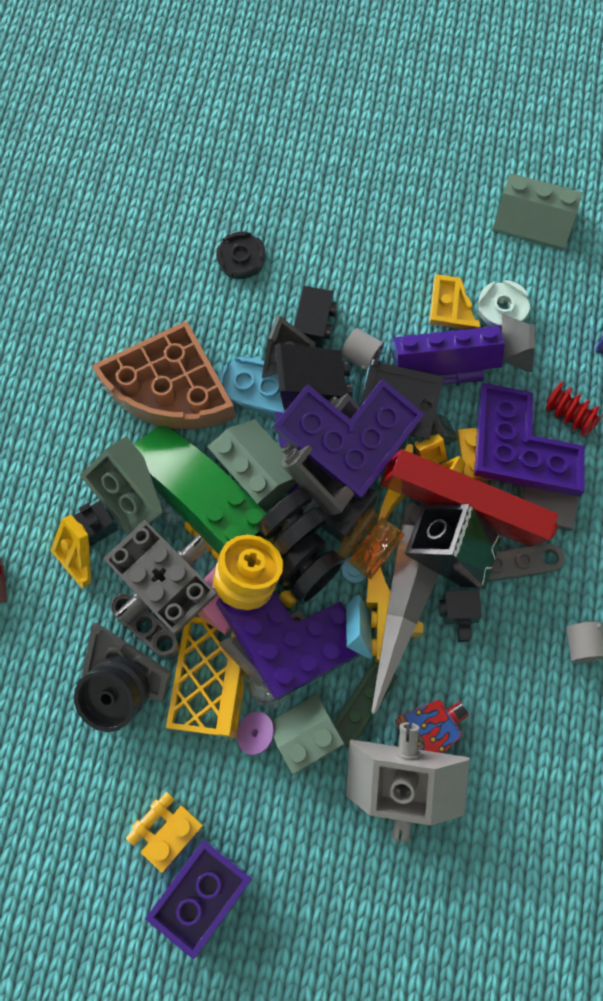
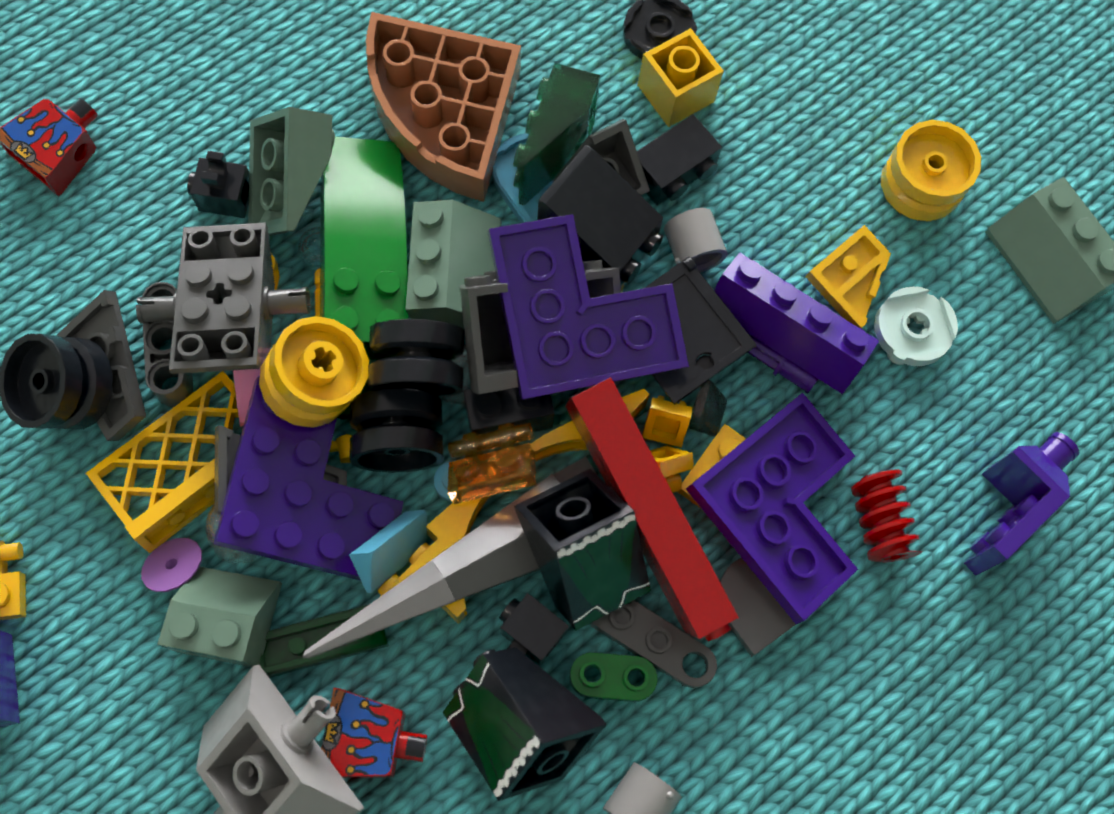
camera: 30 degrees right, 0 degrees up
(72, 550) = (168, 194): yellow wing -> none
(244, 342) = (556, 128): none -> clear green slope
(278, 272) = (679, 77): none -> yellow head
(443, 220) = (930, 170): none -> yellow wheel
(498, 655) = (519, 723): none -> black slope
(519, 343) = (886, 384): dark grey slope -> none
(519, 597) = (613, 677): none -> green plate

